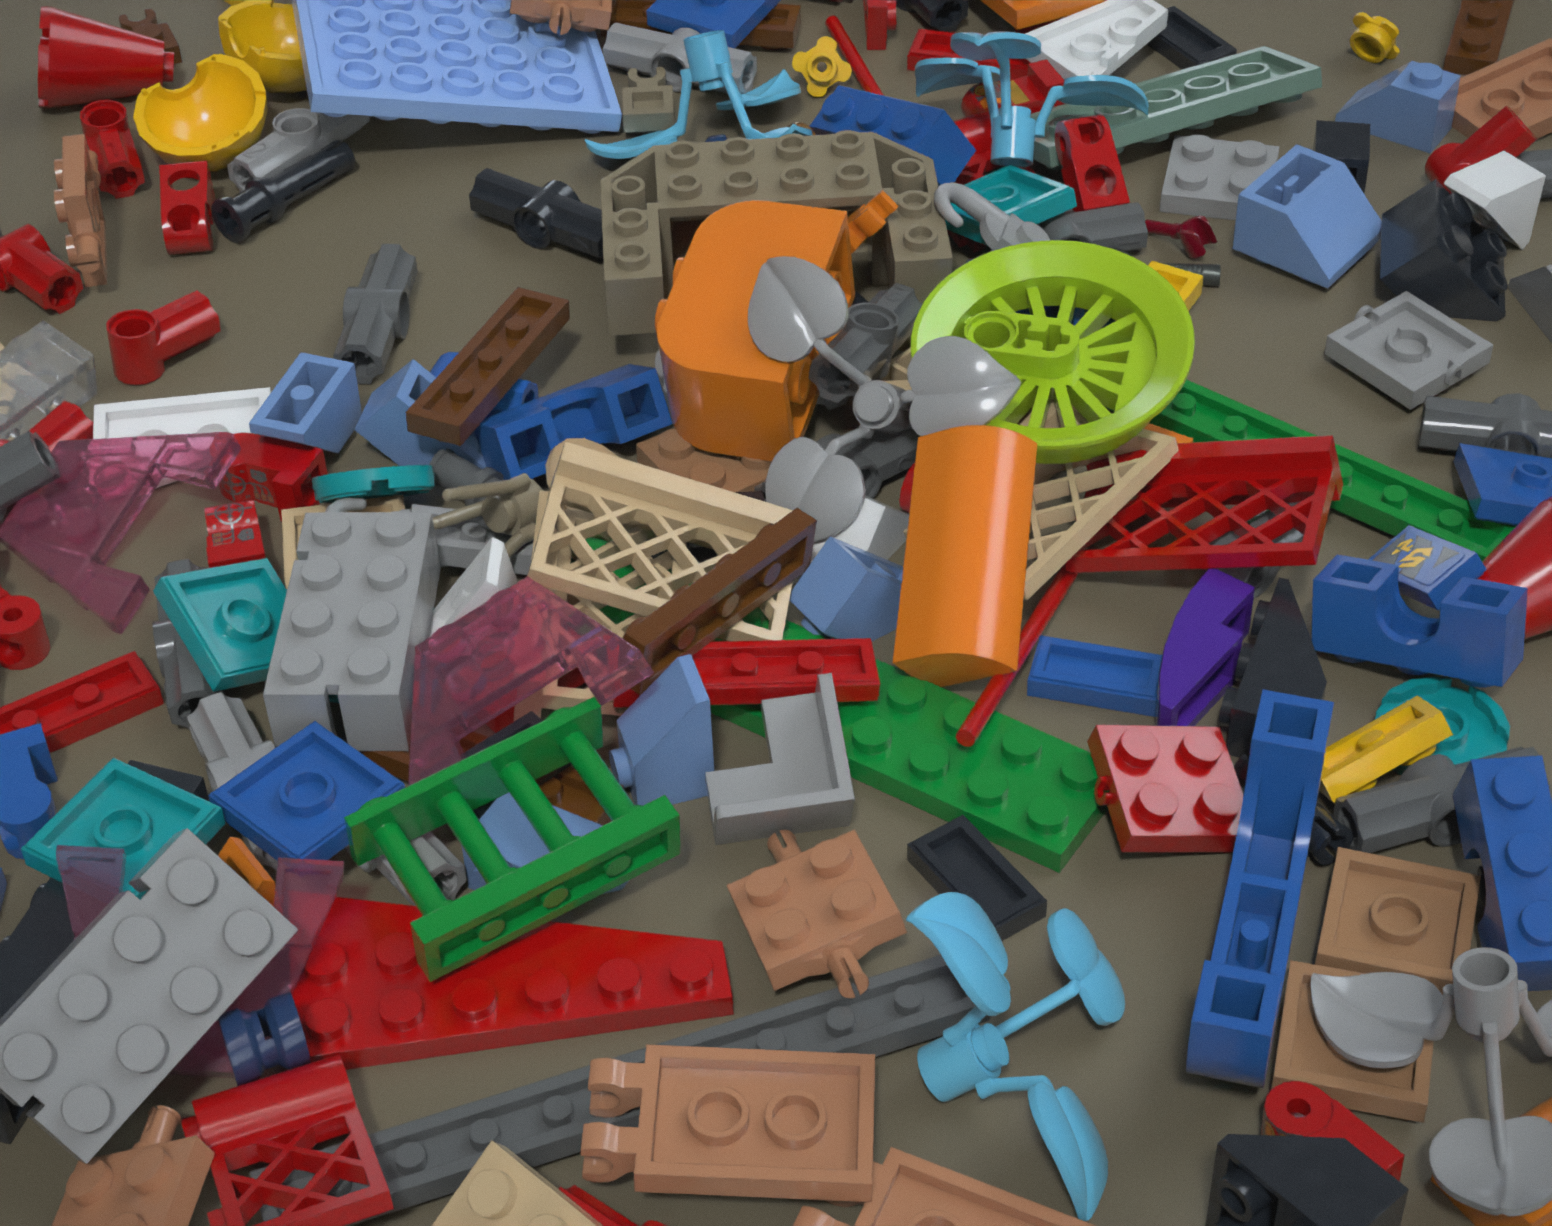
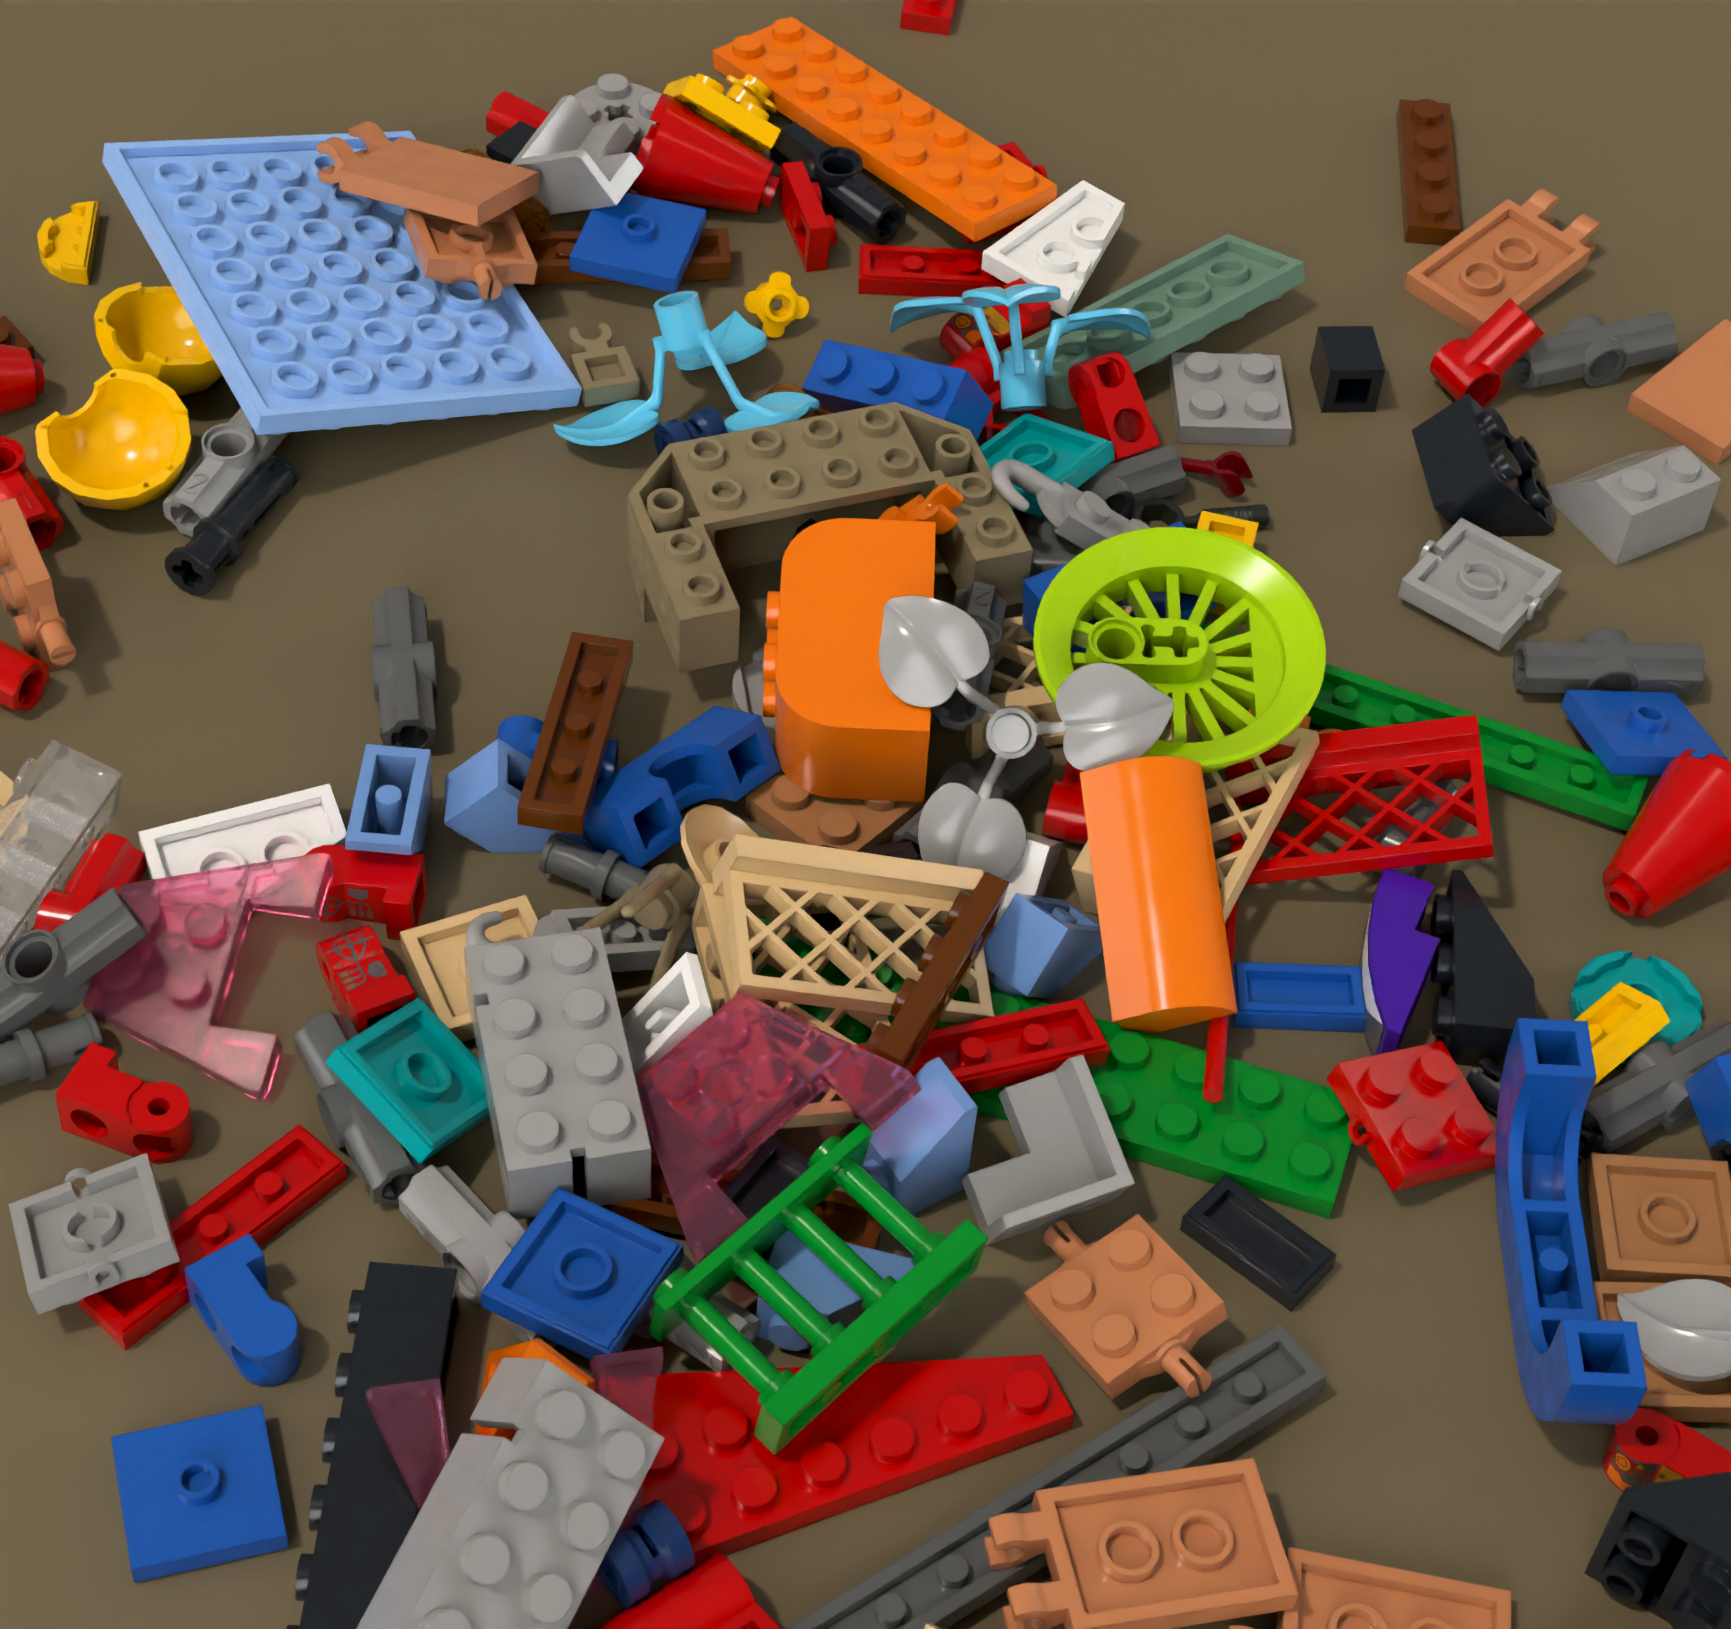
camera: 20 degrees left, 5 degrees up
(125, 812) = (404, 1334): teal tile -> none
(146, 339) = (161, 736): red piece -> none
(186, 213) = (136, 564): red leg -> none
(374, 483) = (494, 888): teal tile -> none
(539, 213) = (542, 523): black piece -> none
(647, 49) = (583, 304): light grey piece -> none
(852, 55) = (800, 286): red axle -> none
(973, 1054) = (1334, 1432): medium azure plant -> none
(1189, 42) = (1150, 236): black tile -> none
(1306, 217) = (1341, 443): medium blue slope -> none
(1365, 619) = (1646, 915): blue arch -> none
(1374, 38) = (1333, 212): yellow plate -> none
(1407, 105) = (1388, 292): medium blue slope -> none
(1428, 565) = (1578, 836): tile -> none
(1501, 195) = (1527, 397): white slope -> none

